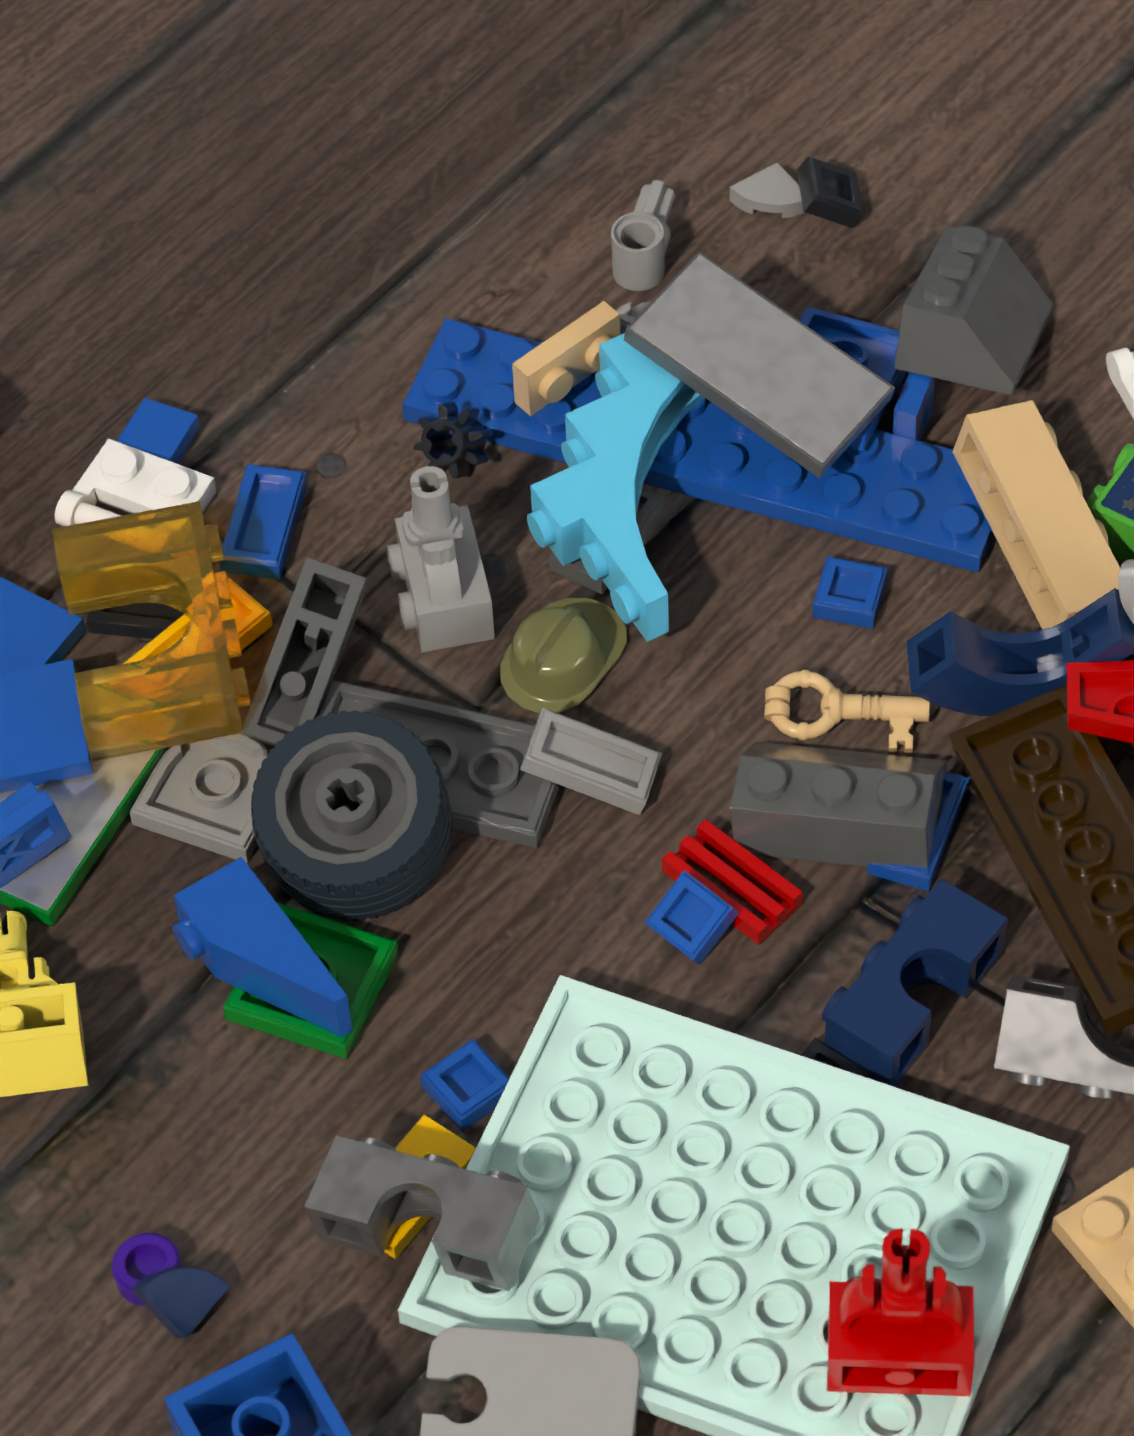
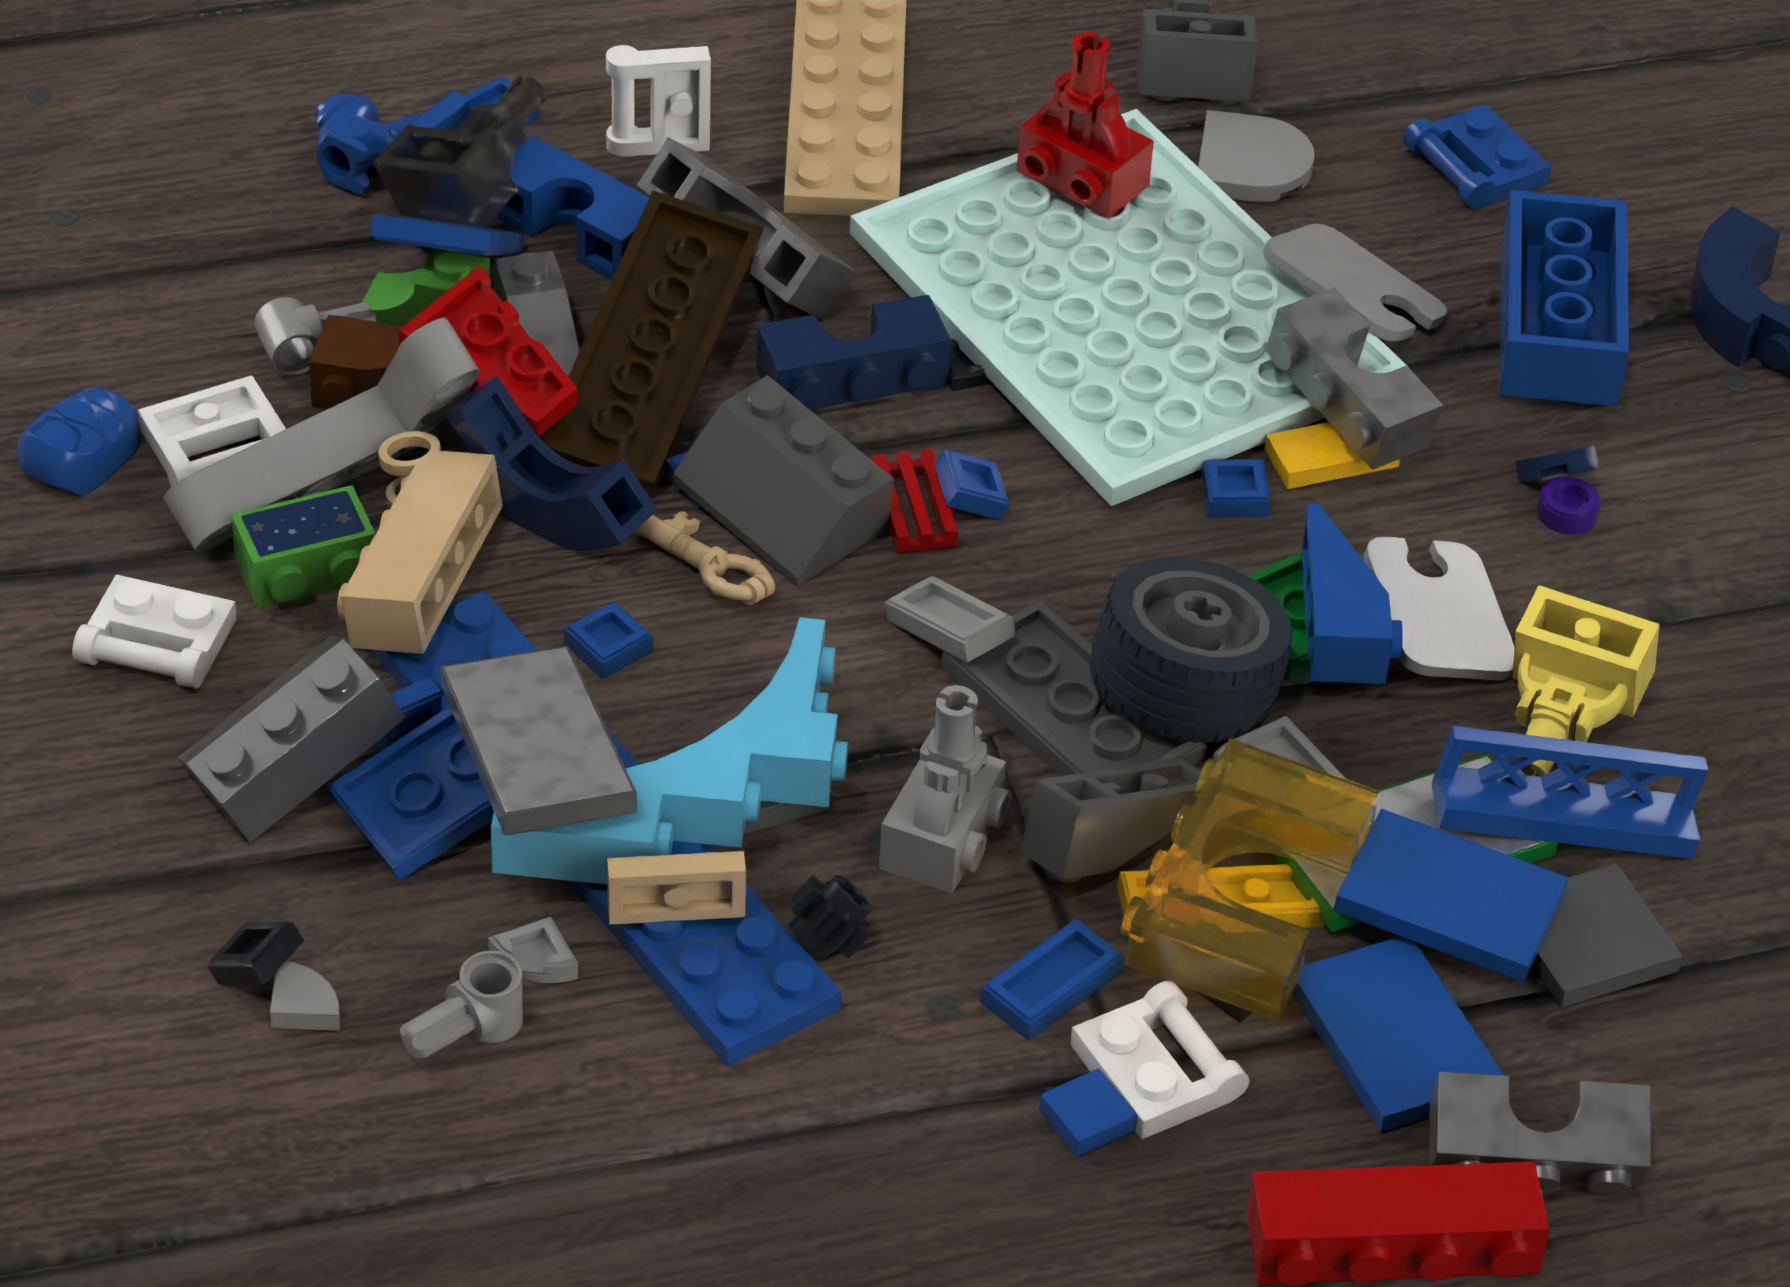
camera: 150 degrees left, 10 degrees down
(171, 1043) = (1447, 620): none -> piece
(562, 654) = (888, 721): olive piece -> none

